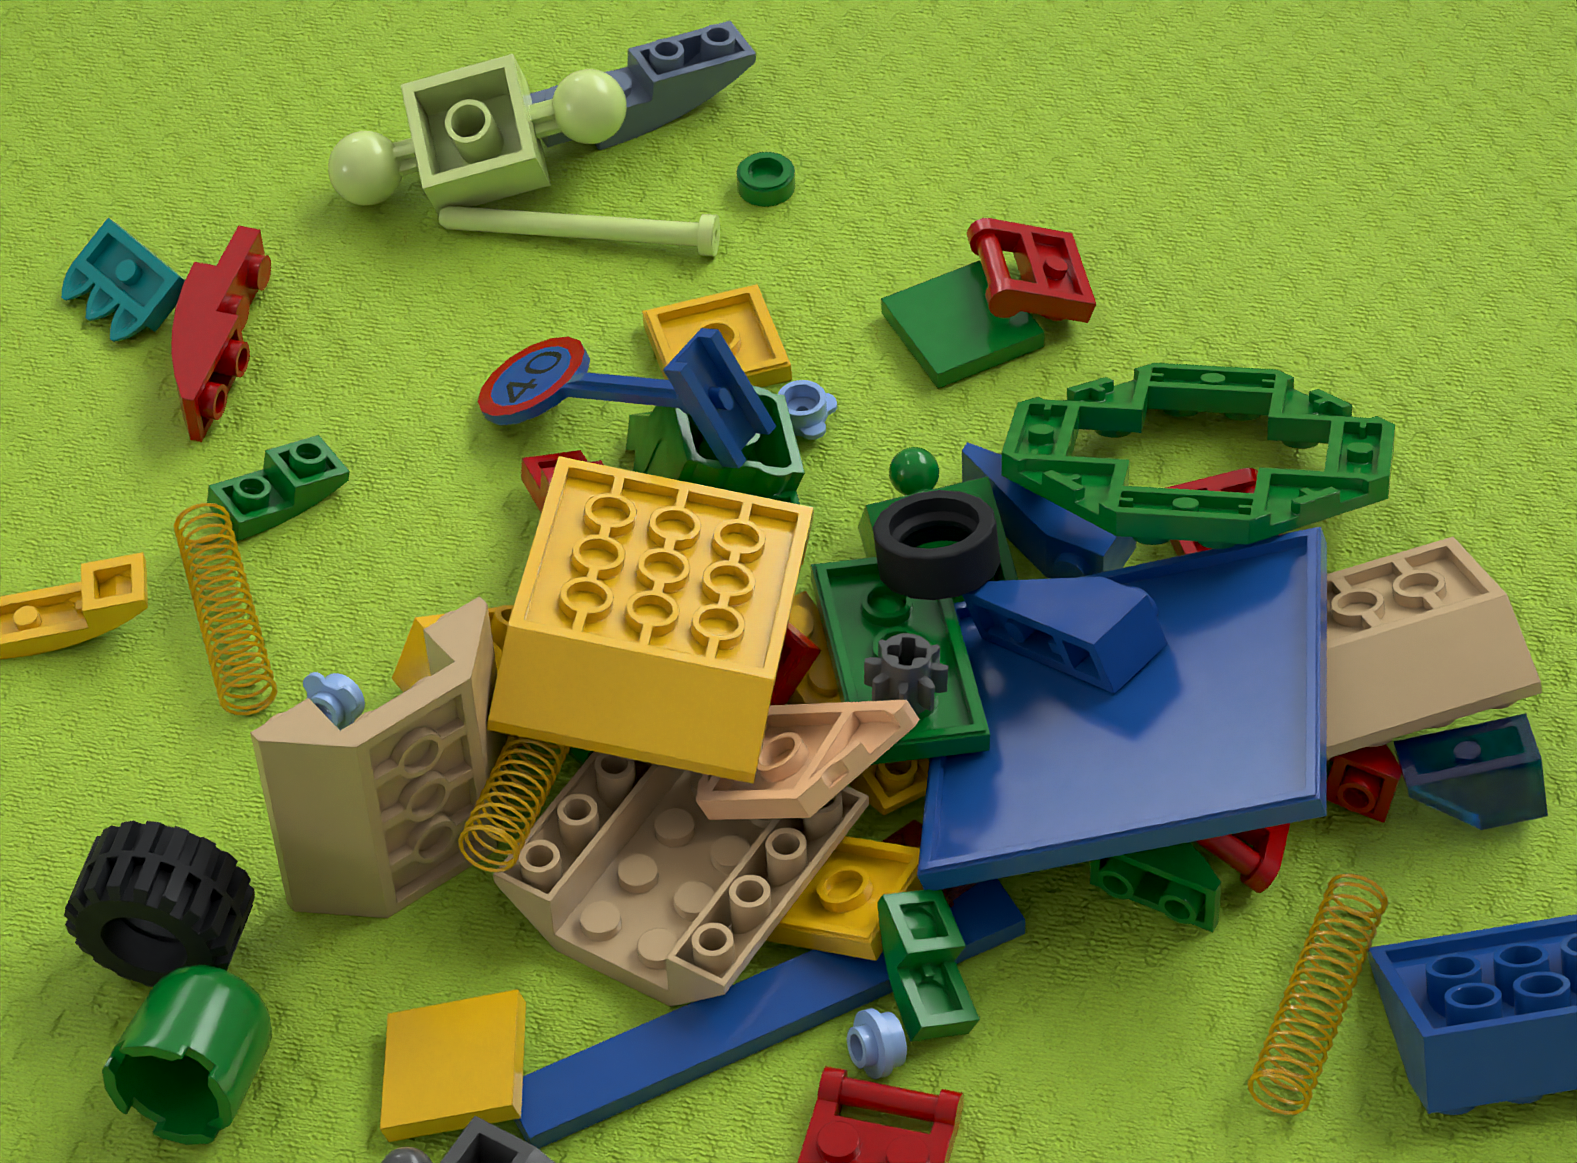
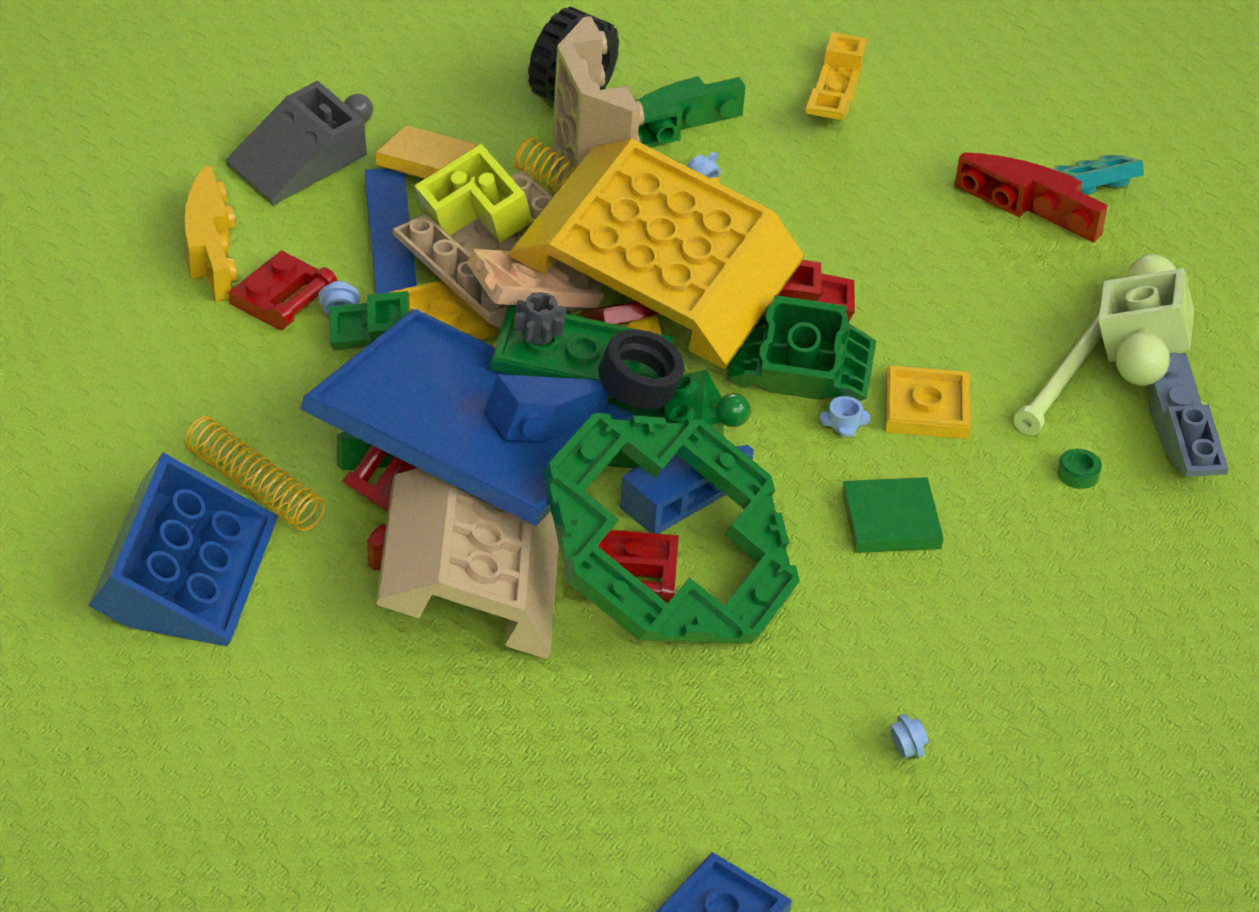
camera: 105 degrees right, 5 degrees down
(190, 1053) = (481, 61): green cylinder -> none
(200, 792) = (687, 106): none -> green slope
(230, 535) = (871, 150): yellow piece -> none
(288, 485) = (891, 195): green slope -> none
(611, 882) = (475, 189): none -> neon yellow brick
(701, 382) = (798, 285): blue piece -> none
(1048, 264) = (907, 555): red plate -> none
(1349, 204) = (909, 736): none -> light blue plate
(1477, 772) = (351, 583): slope -> none

